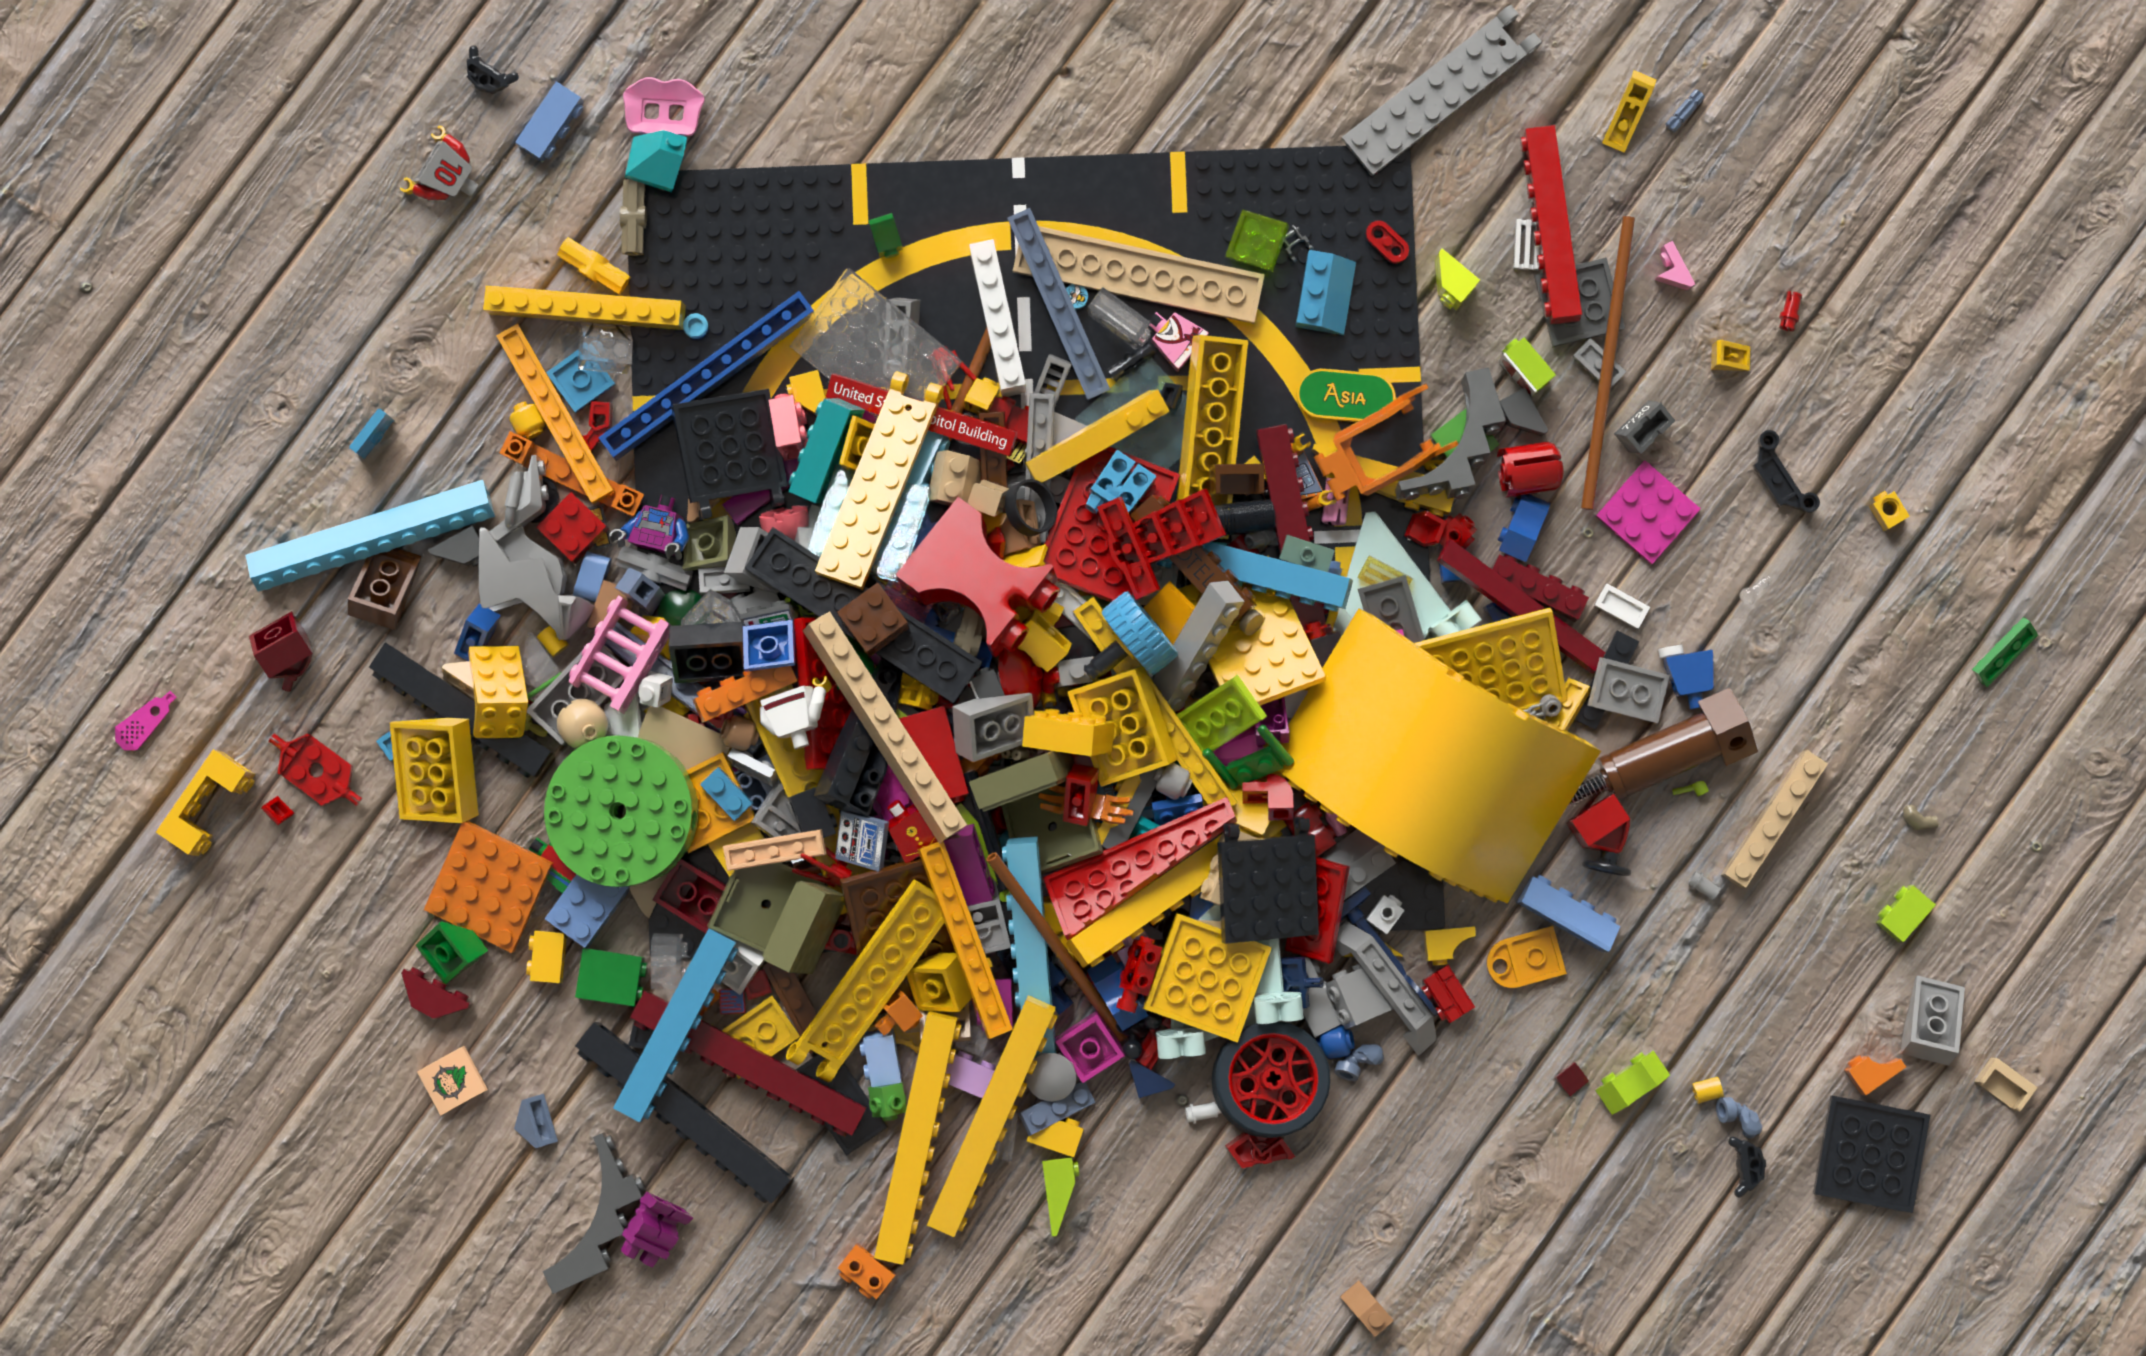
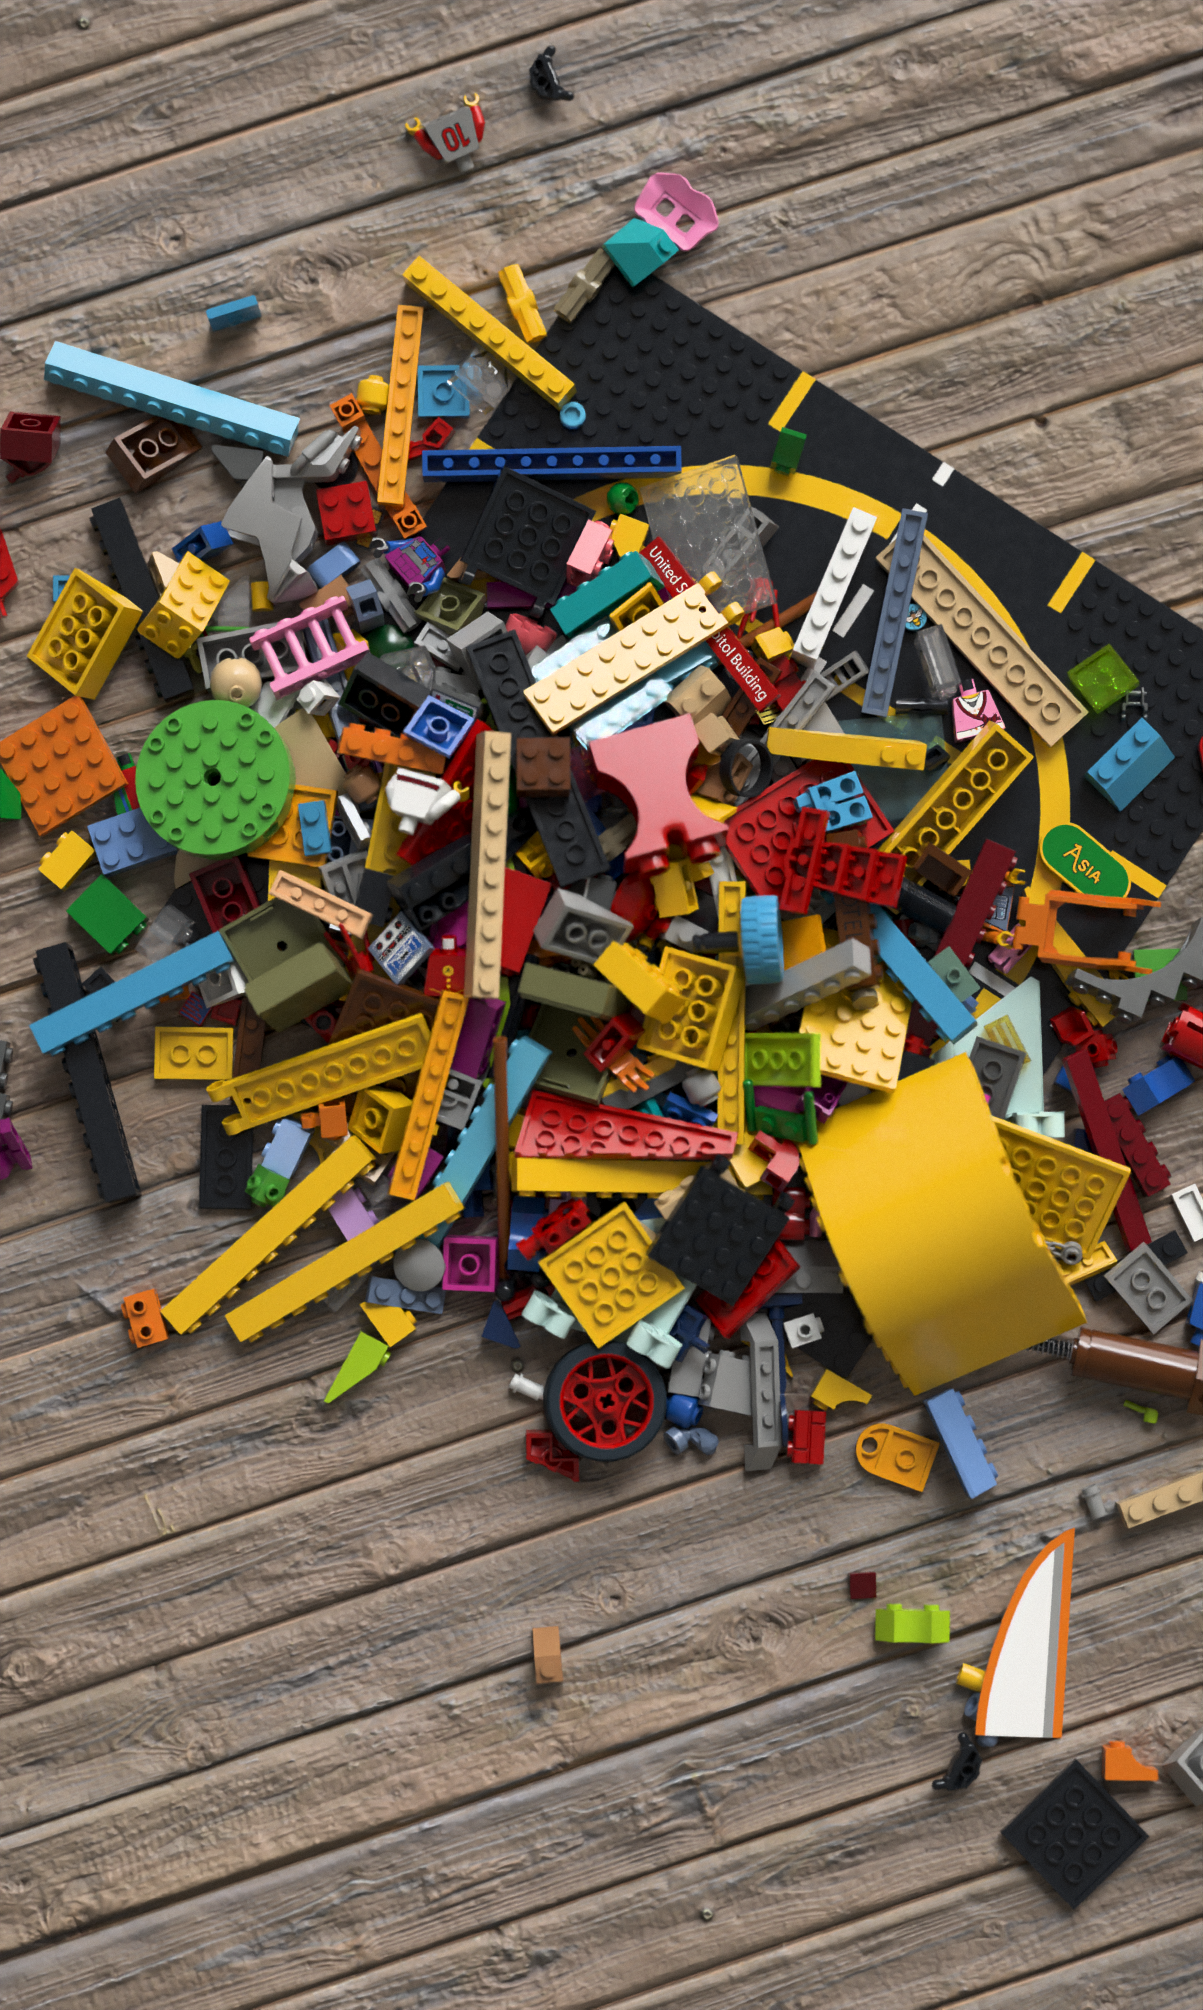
camera: 35 degrees right, 0 degrees up
(550, 122) = (572, 156): medium blue brick -> none
(759, 1070) = (177, 1083): dark red brick -> none
(781, 363) = (622, 498): none -> green piece
(1603, 829) = (1042, 1392): red piece -> none
(1738, 1040) = (1029, 1656): none -> sticker

